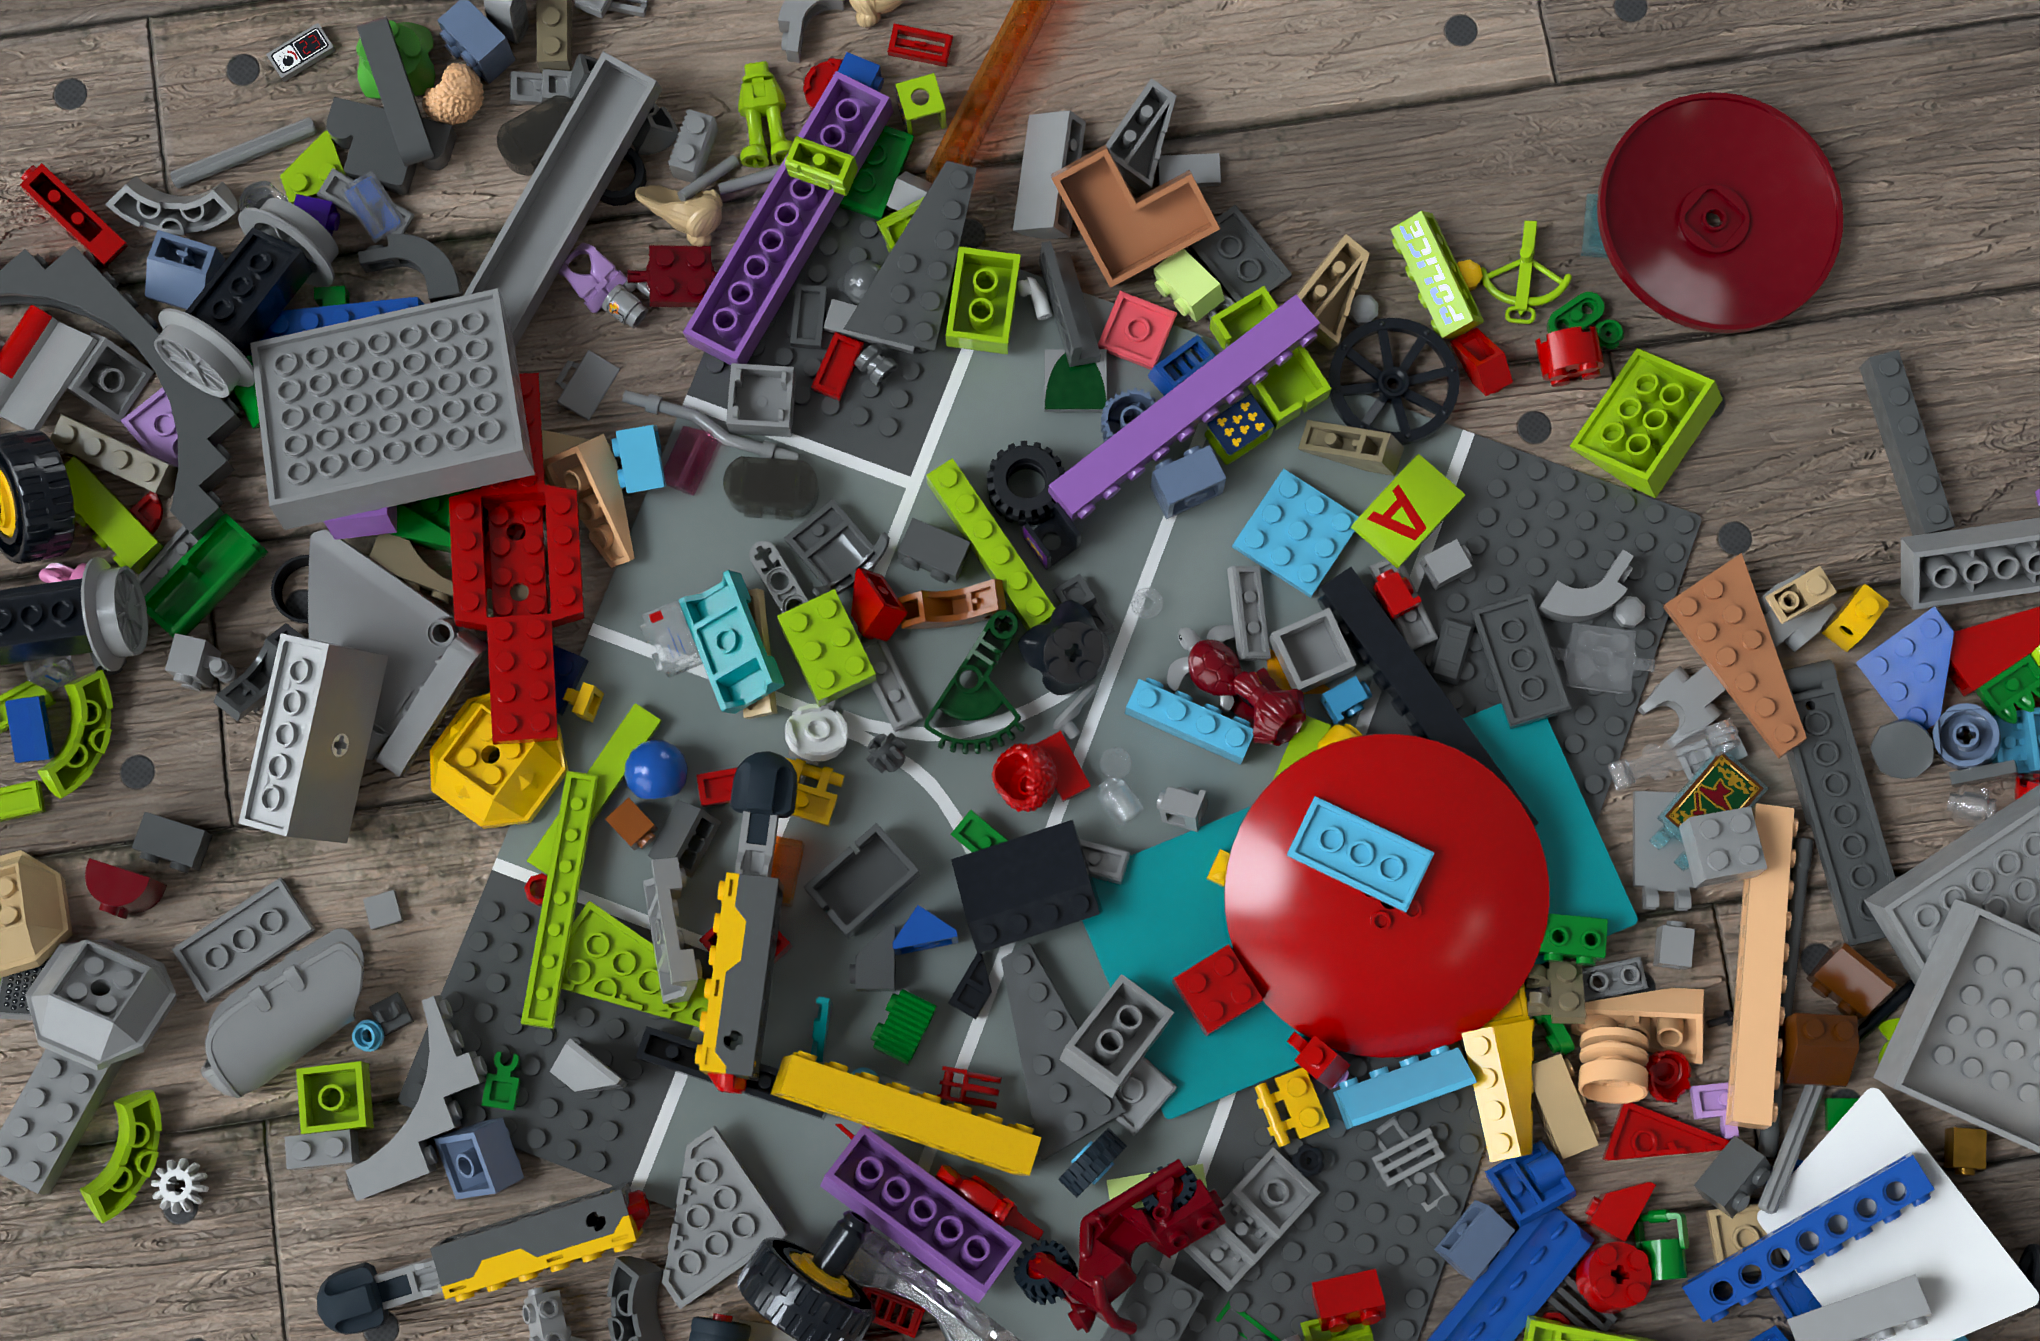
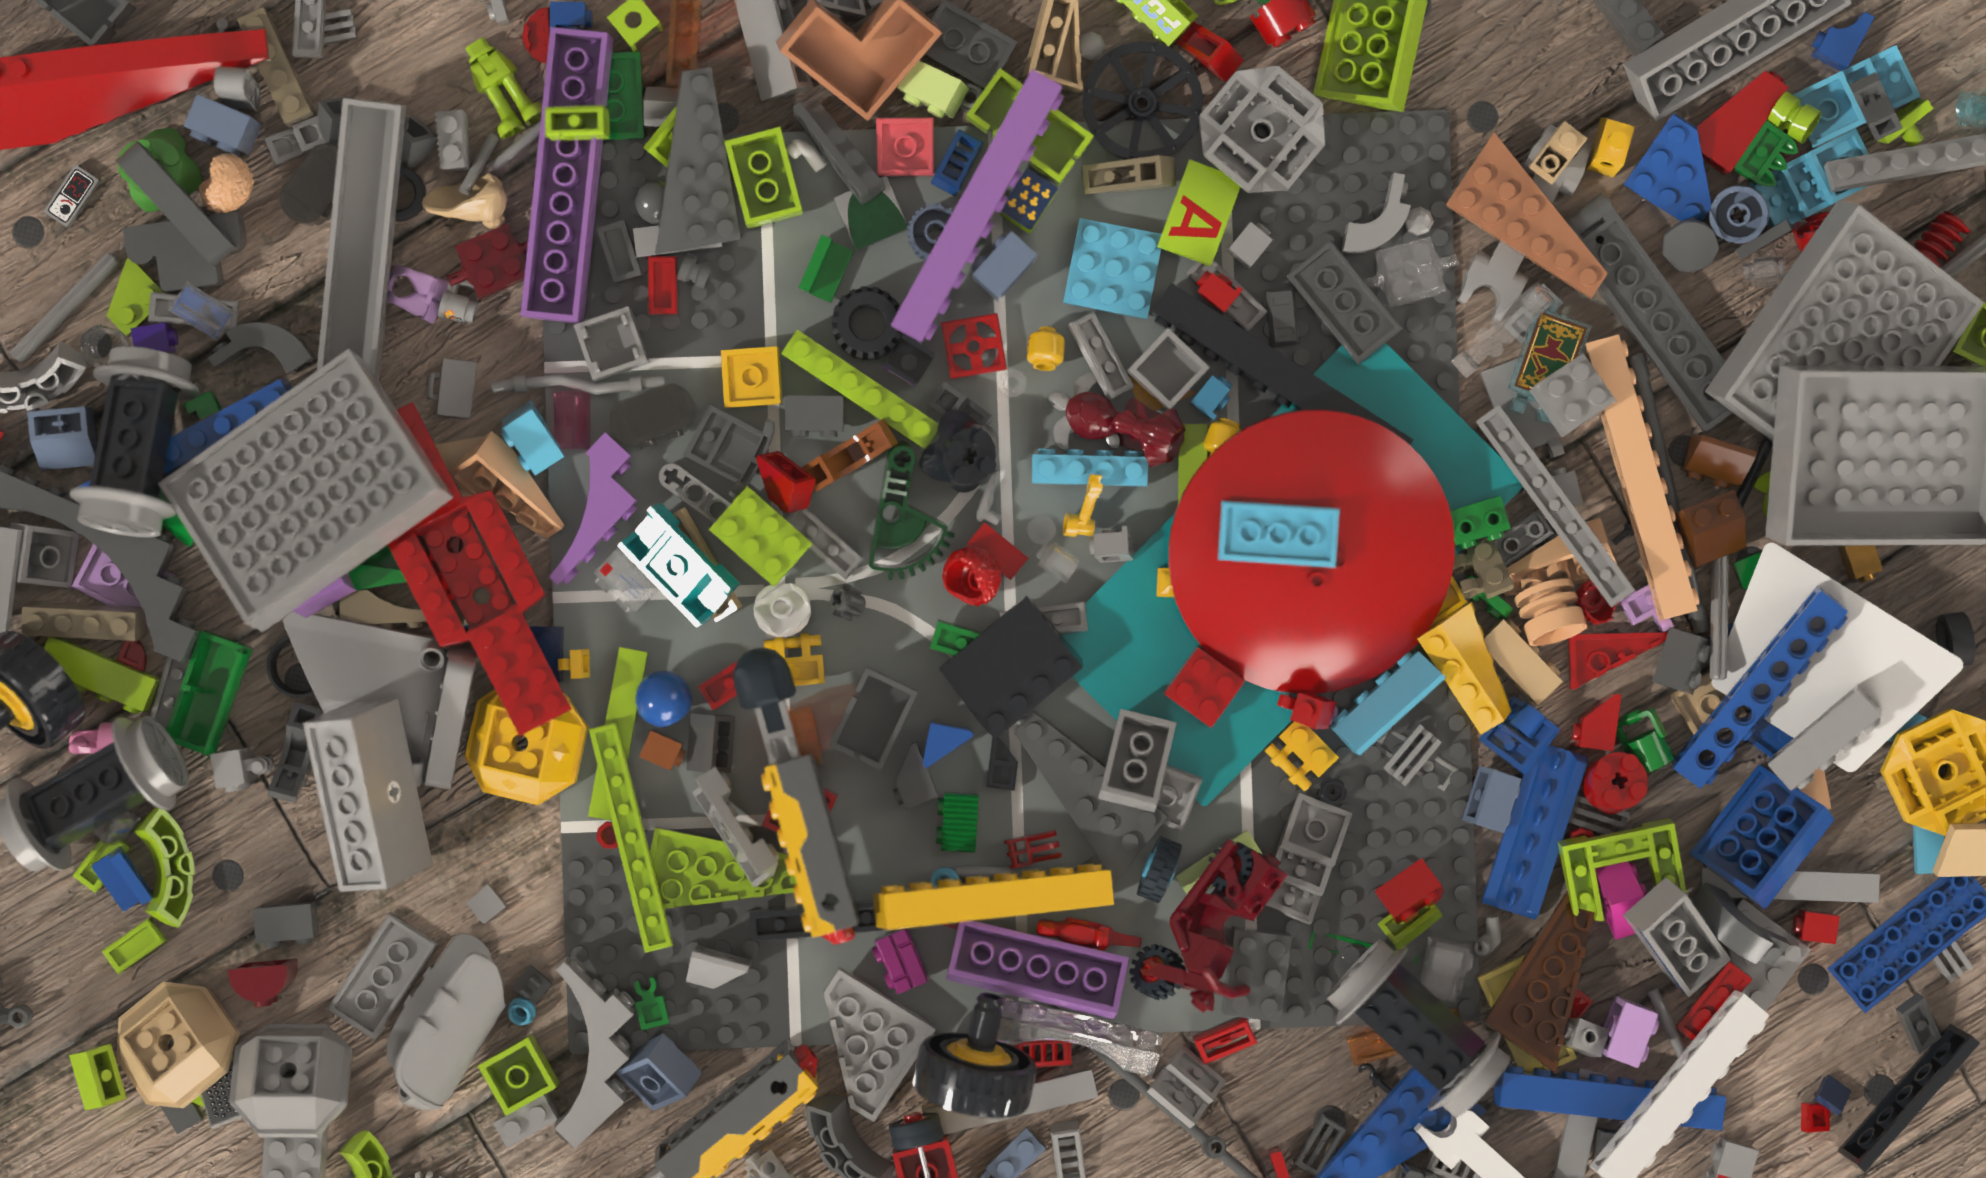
camera: 25 degrees left, 10 degrees up
(681, 559) = (605, 506): none -> medium lavender arch
(782, 1146) = (901, 960): none -> magenta brick
(821, 1027) = (891, 852): teal tile -> none
(886, 490) = (751, 377): none -> yellow plate
(1006, 415) = (825, 269): none -> green panel
(1107, 523) = (990, 320): none -> red piece
(1159, 772) = (1081, 523): none -> yellow brick
(1195, 582) = (1045, 349): none -> yellow head
(1524, 428) = (1267, 99): none -> light grey piece
(1661, 956) = (1555, 506): none -> light grey plate

